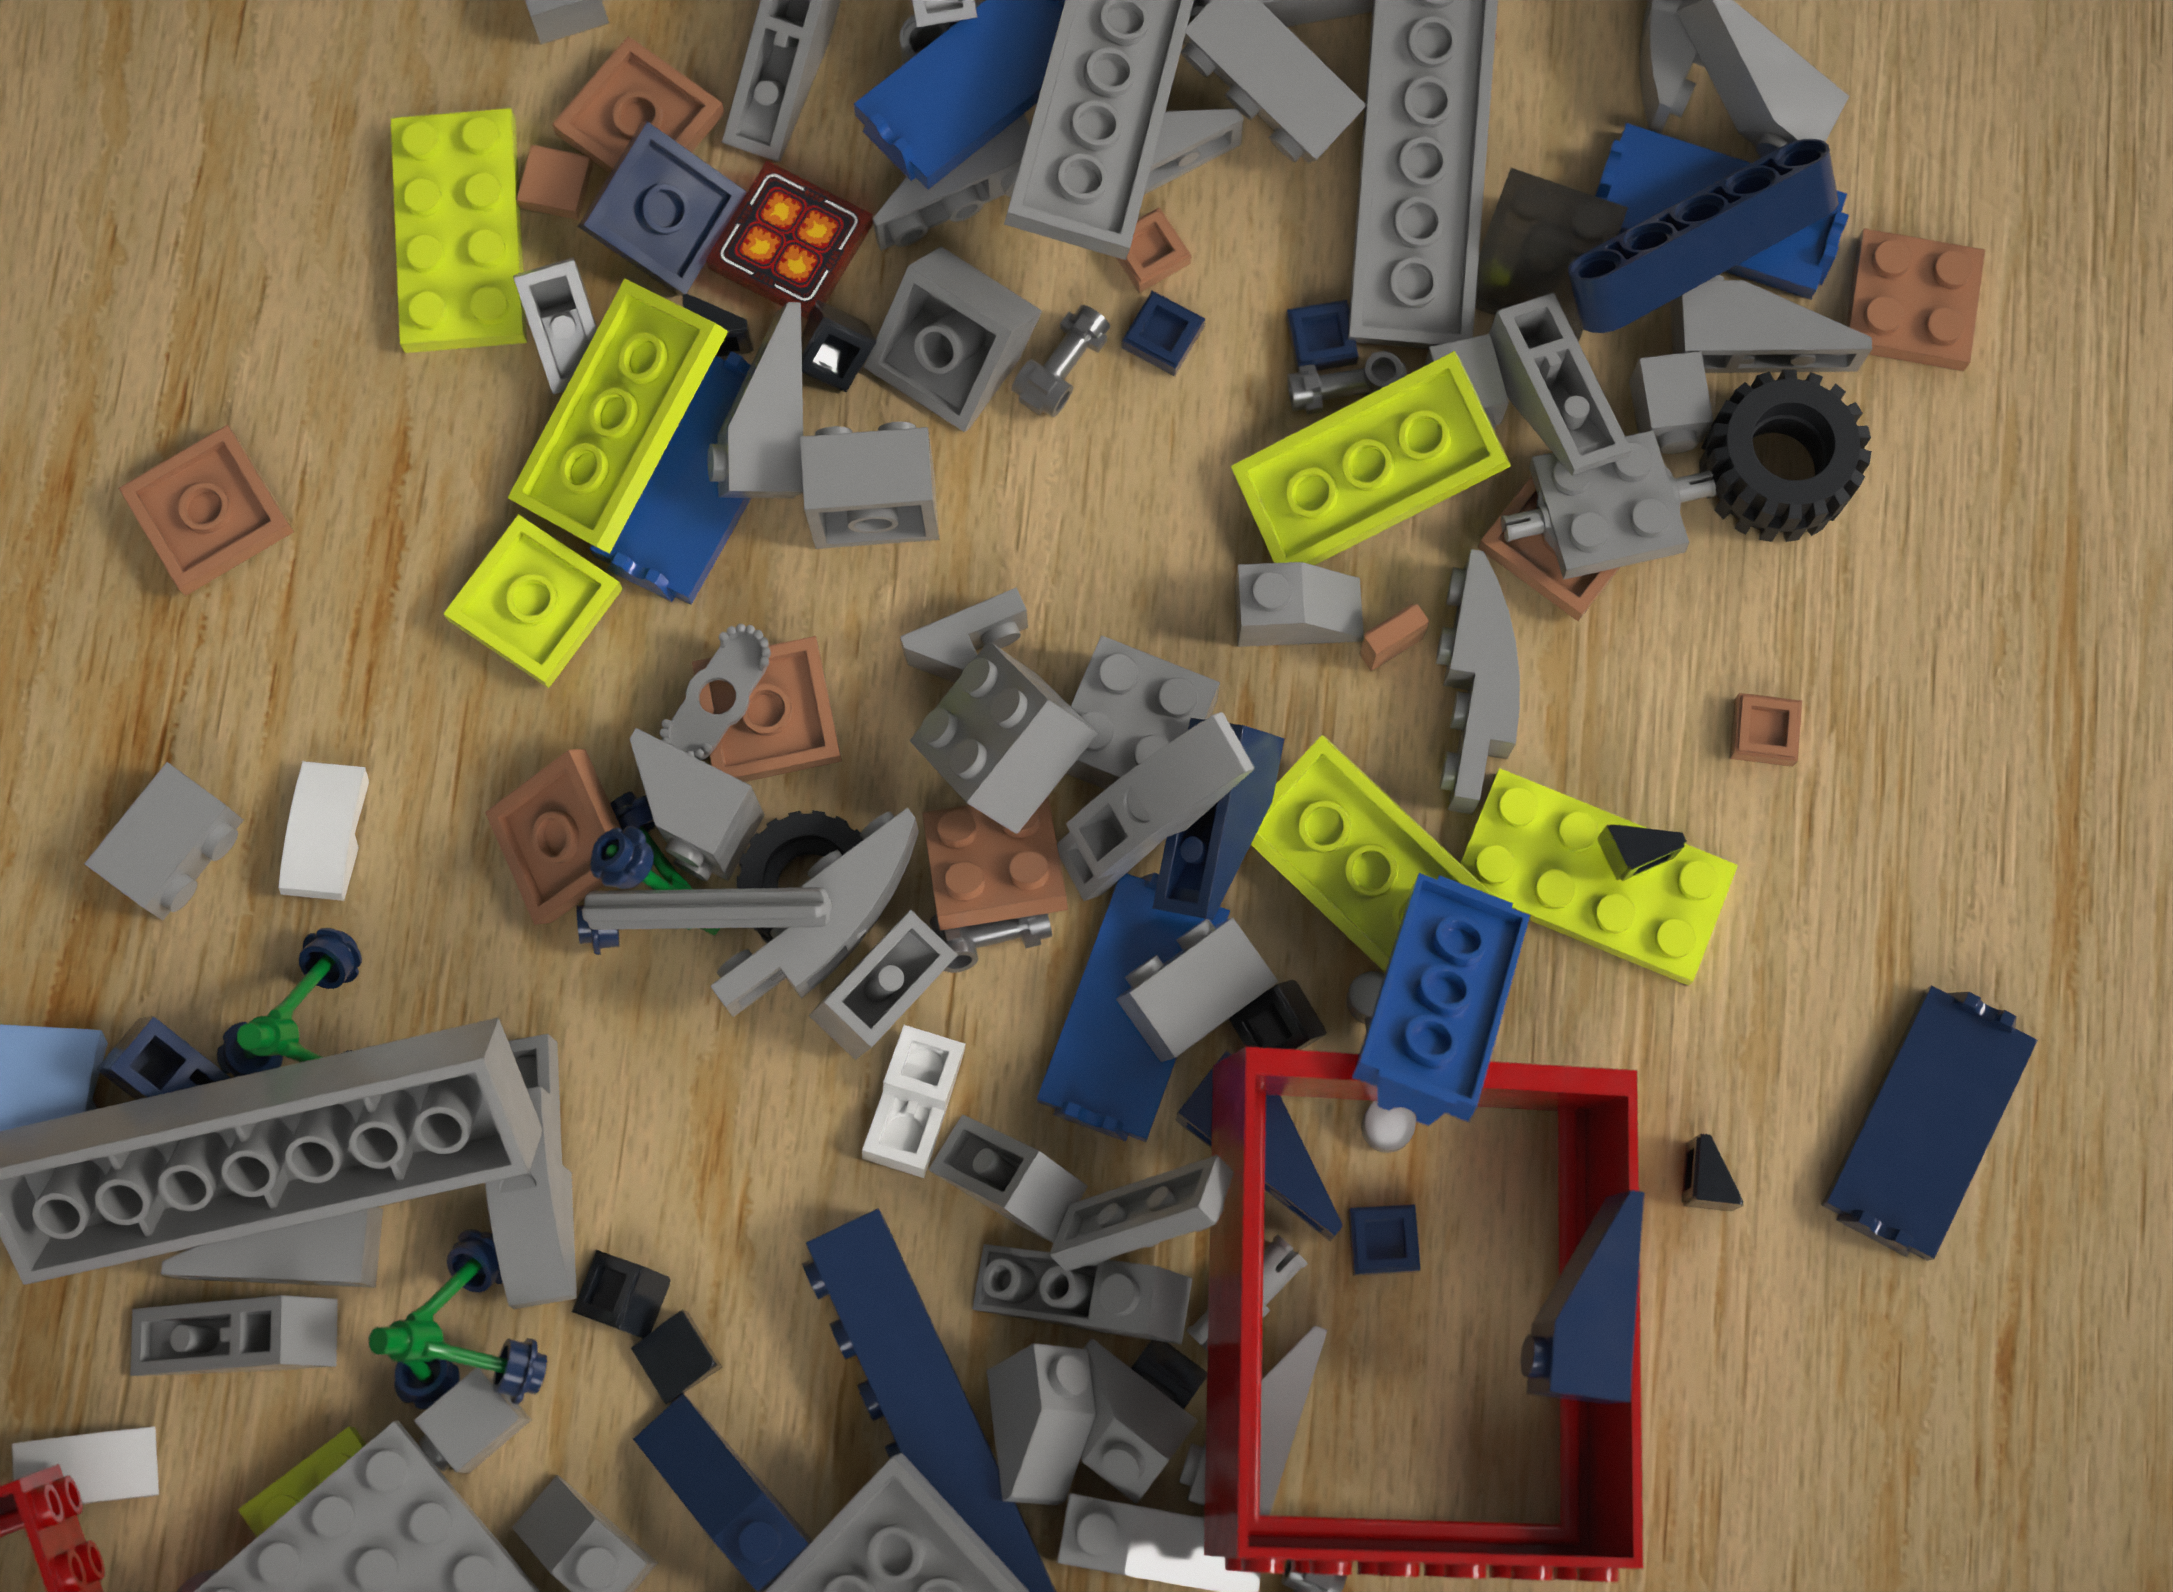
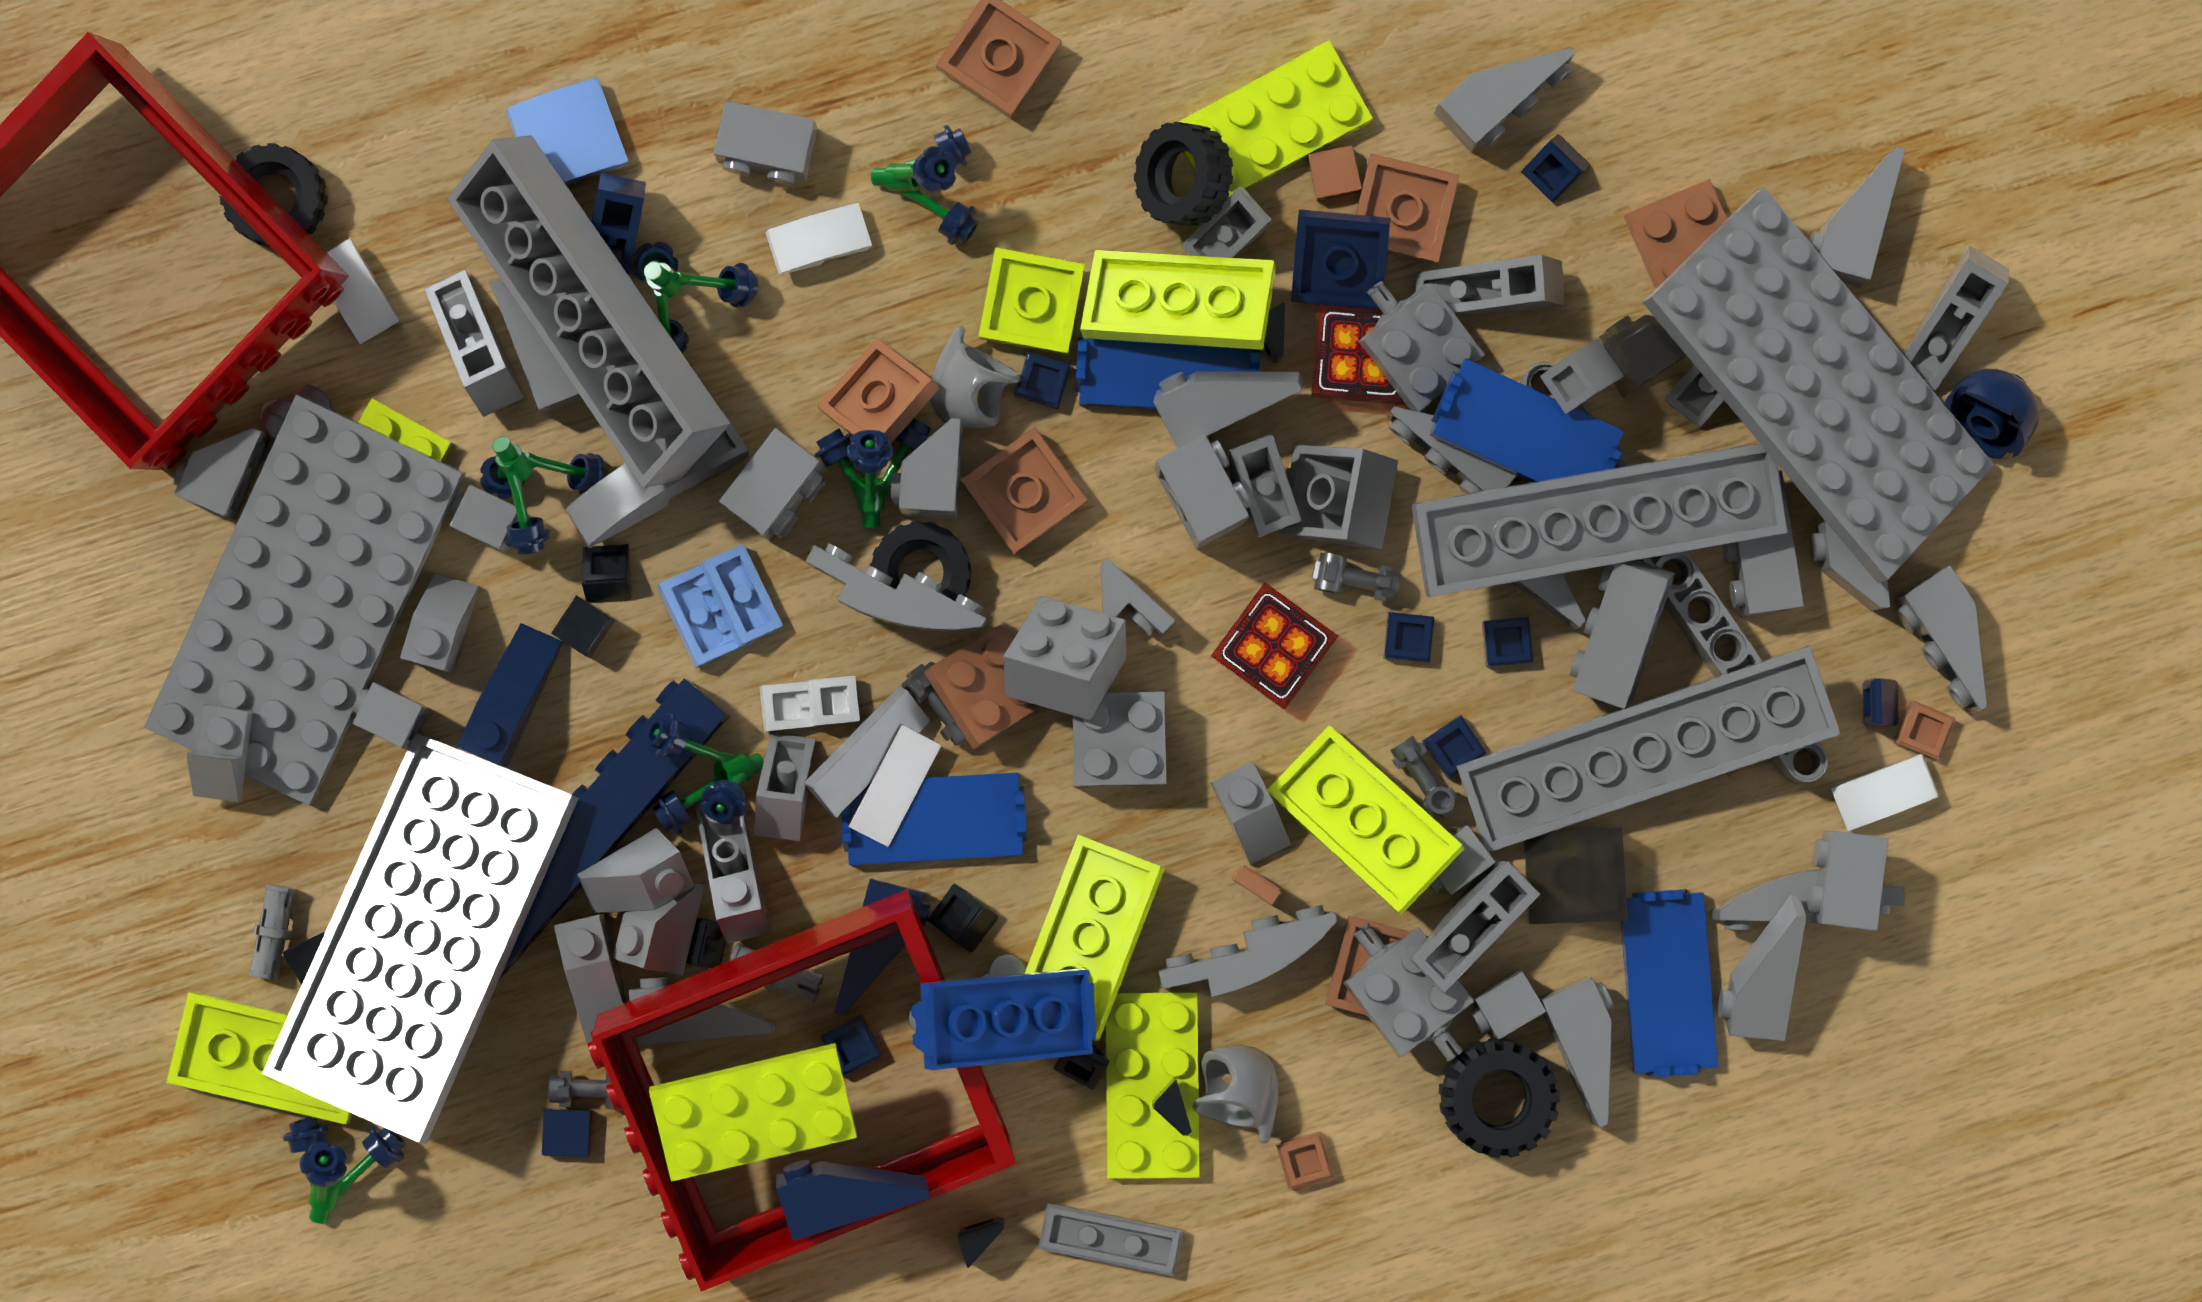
camera: 60 degrees right, 10 degrees up
(303, 626) = (934, 171): none -> dark blue plant
(428, 368) = (1211, 178): none -> black tyre
(597, 717) = (961, 376): none -> light grey piece
(607, 1015) = (774, 486): none -> light grey brick
(639, 632) = (1043, 380): none -> dark blue tile
(708, 908) = (865, 521): light grey axle -> none
(733, 1164) = (719, 606): none -> light blue slope
(740, 662) = (986, 452): light grey piece -> none
(809, 162) = (1417, 343): none -> light grey plate
(835, 345) = (1299, 419): black slope -> none
(873, 399) = (1266, 484): none -> light grey slope
(883, 985) = (871, 652): light grey slope -> none
(978, 1251) = (722, 797): none -> dark blue plant
(1010, 1047) = (861, 754): none -> light grey tile
(1070, 1033) = (894, 785): none -> white sticker
(1102, 491) = (1274, 646): none -> tile
(1142, 1213) = (786, 885): light grey plate -> none
(1152, 803) = (1057, 777): light grey slope -> none
(1154, 251) = (1466, 607): nougat tile -> none
(1195, 988) = (956, 855): light grey brick -> none
(1206, 856) = (1076, 819): dark blue slope -> none
(1220, 222) = (1507, 641): none -> dark blue tile
(1430, 1384) = (753, 1112): none -> neon yellow plate
(1539, 952) = (1085, 1068): none -> black slope
(1663, 761) = (1251, 1095): none -> light grey piece
(1703, 235) = (1629, 980): dark blue beam -> none
(1772, 1014) = (1110, 1239): none -> light grey tile
(1916, 298) = (1661, 1143): nougat plate -> none

